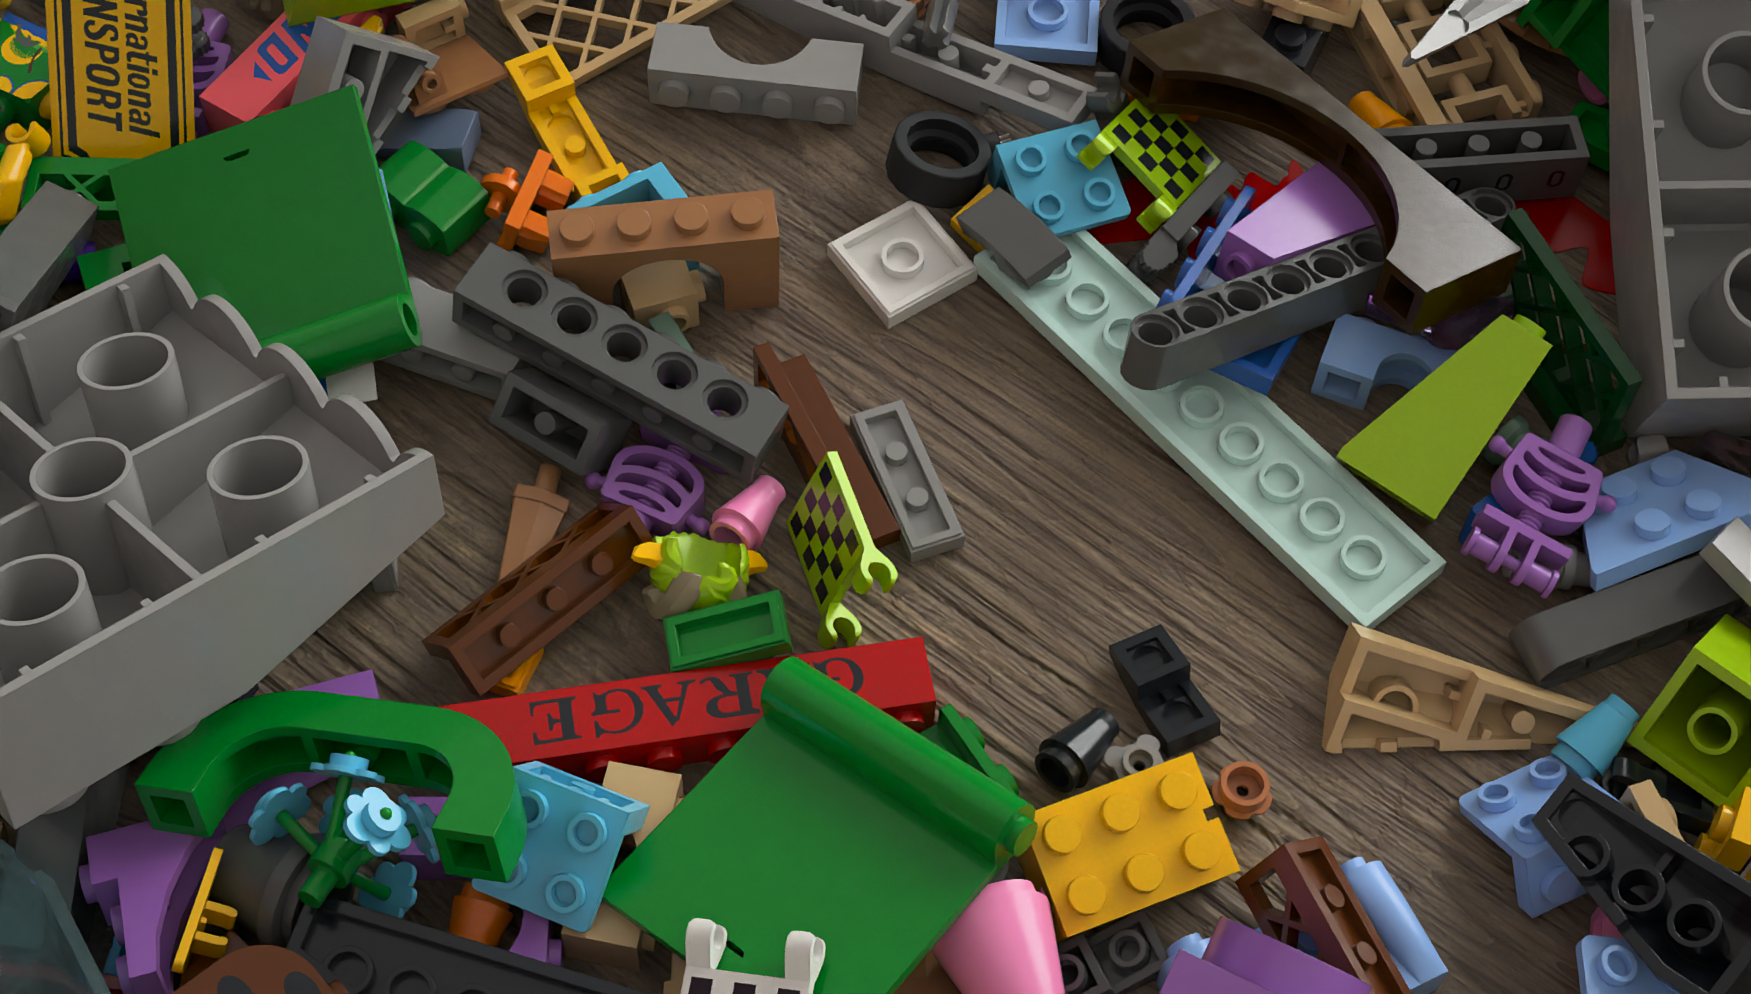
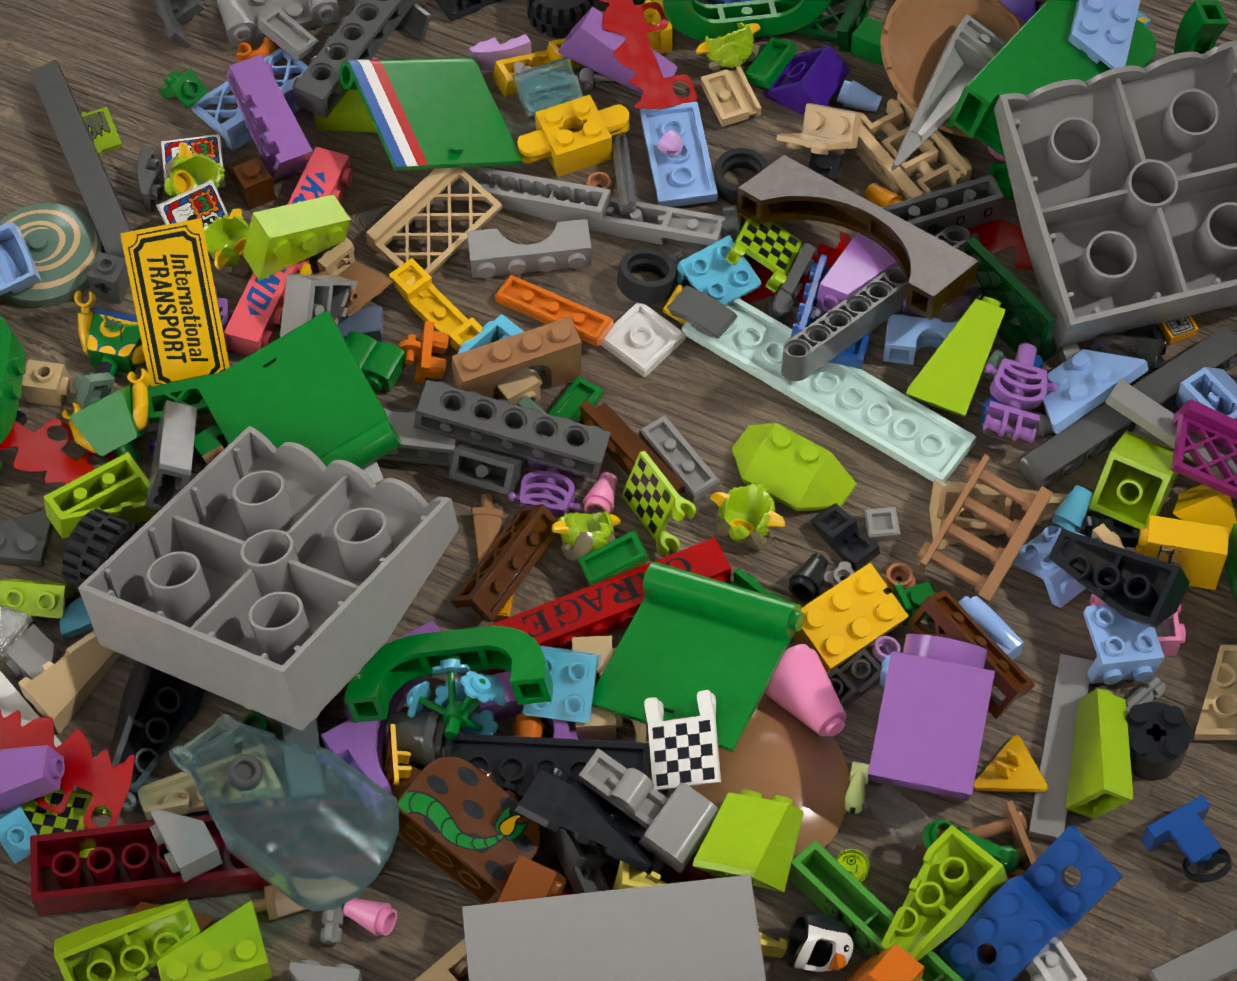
camera: 10 degrees left, 0 degrees up
(746, 166) = (550, 307): none -> orange tile
(765, 325) = (574, 396): none -> green tile
(994, 609) = (747, 515): none -> lime hair
(1098, 545) = (791, 468): none -> lime wedge
(1191, 918) = (887, 645): none -> lavender hinge
(1236, 682) = (882, 524): none -> light grey tile
(1258, 834) = (912, 598): none -> green bracket
(1439, 796) = (1016, 531): none -> medium nougat fence

